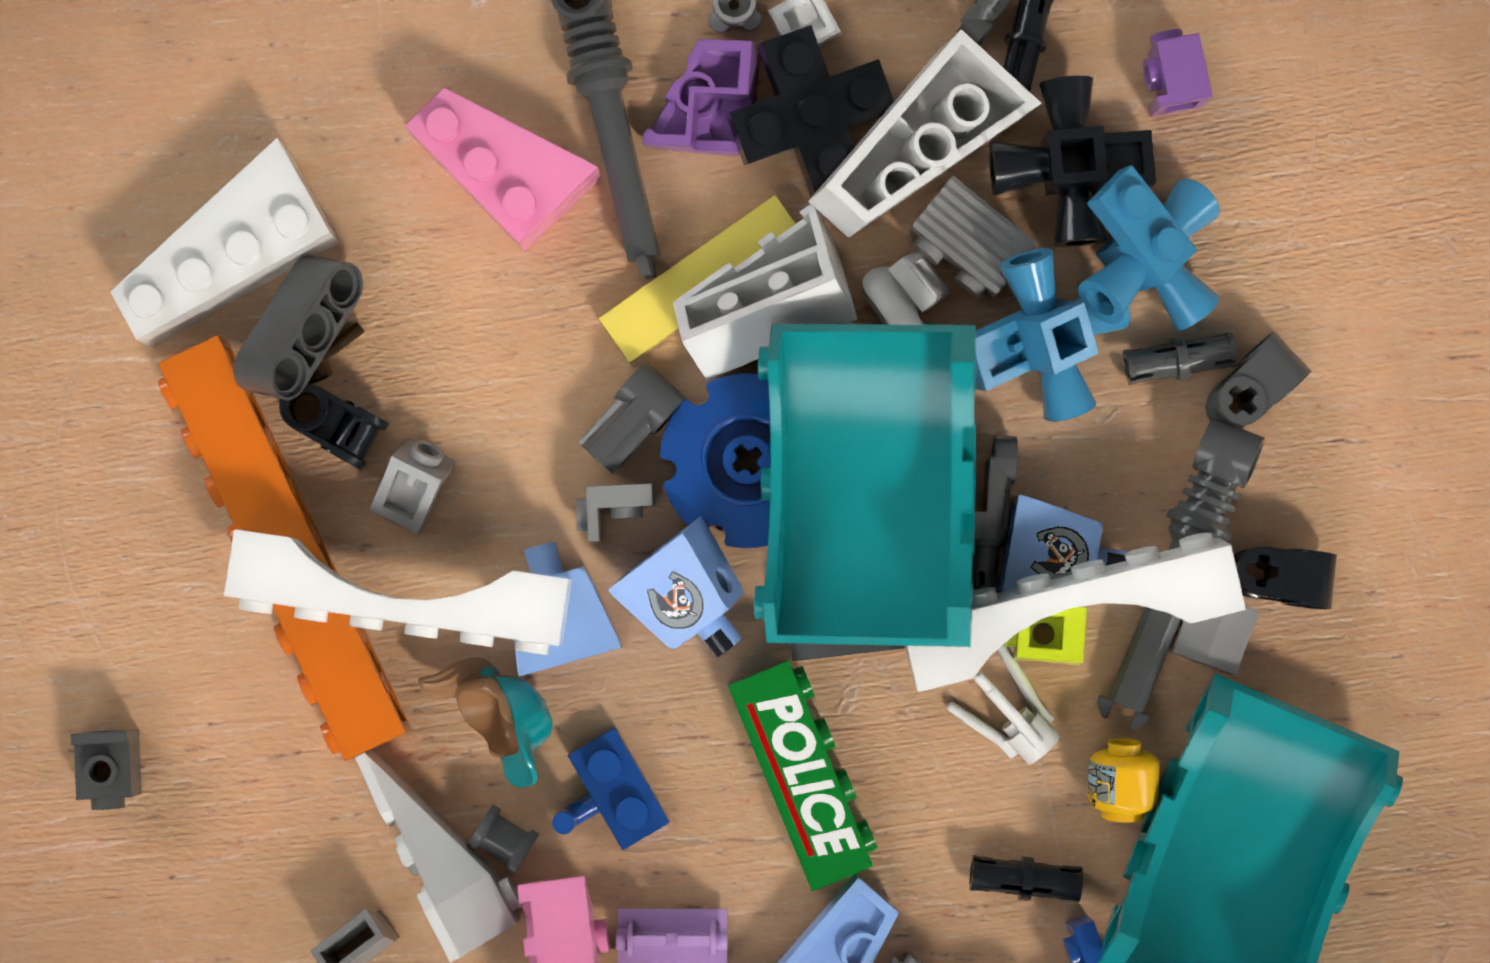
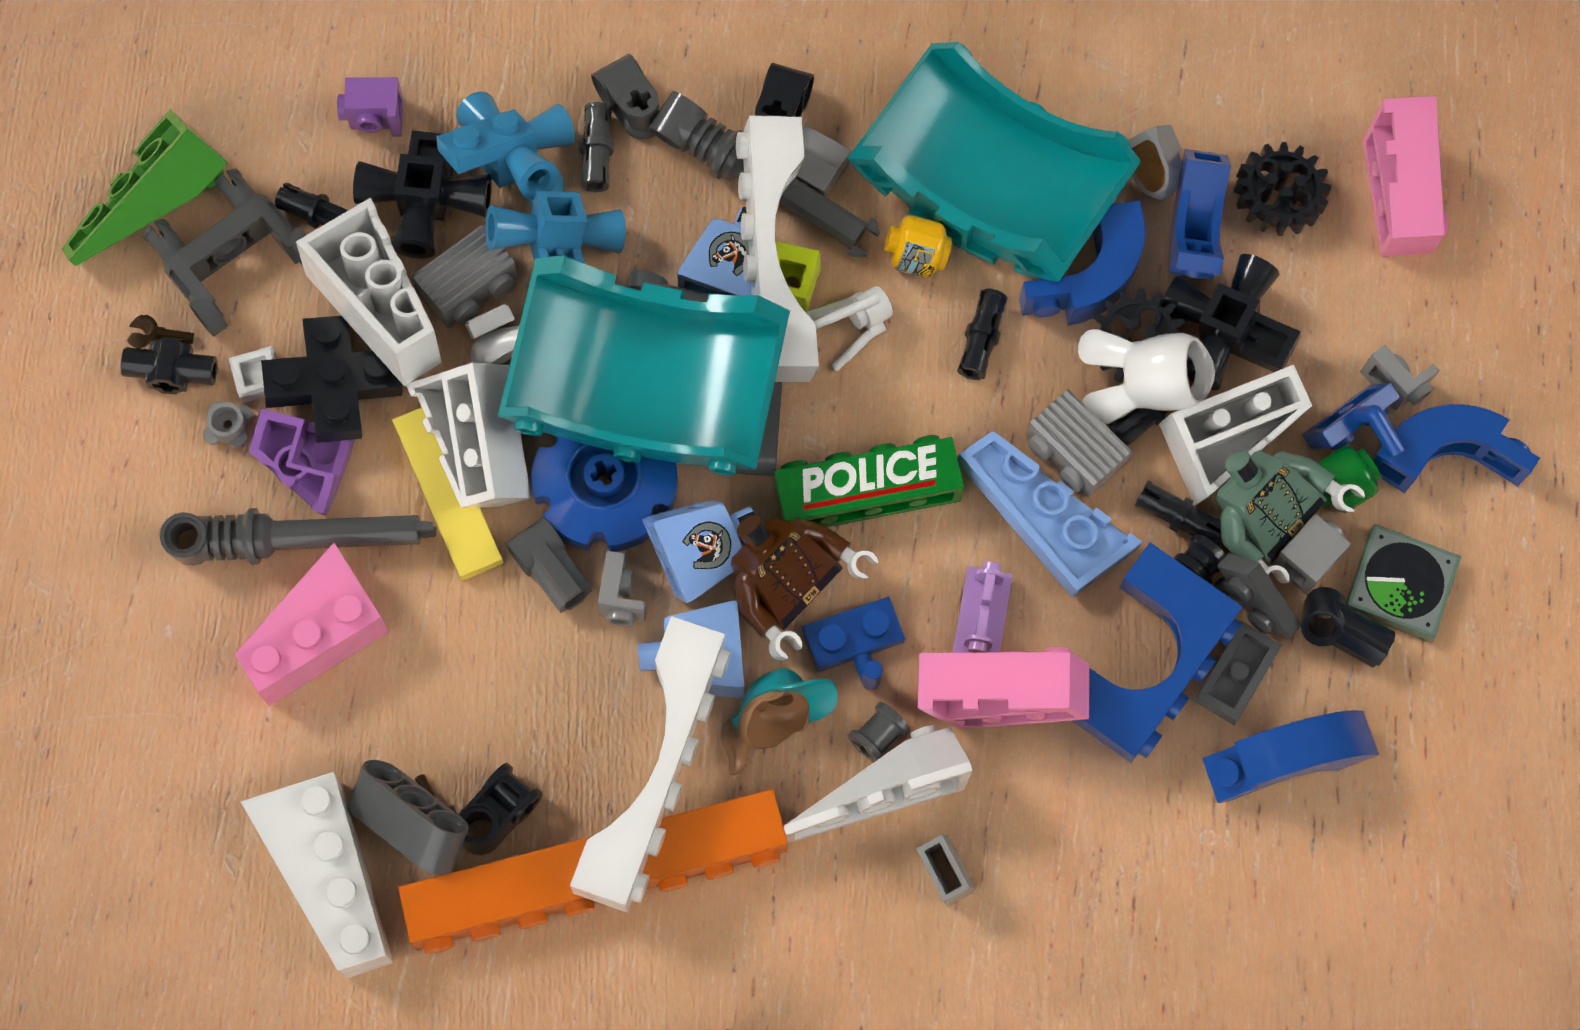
camera: 80 degrees left, 15 degrees down
(412, 484) = (564, 753): light grey bracket -> none
(668, 695) = (784, 571): none -> reddish brown torso

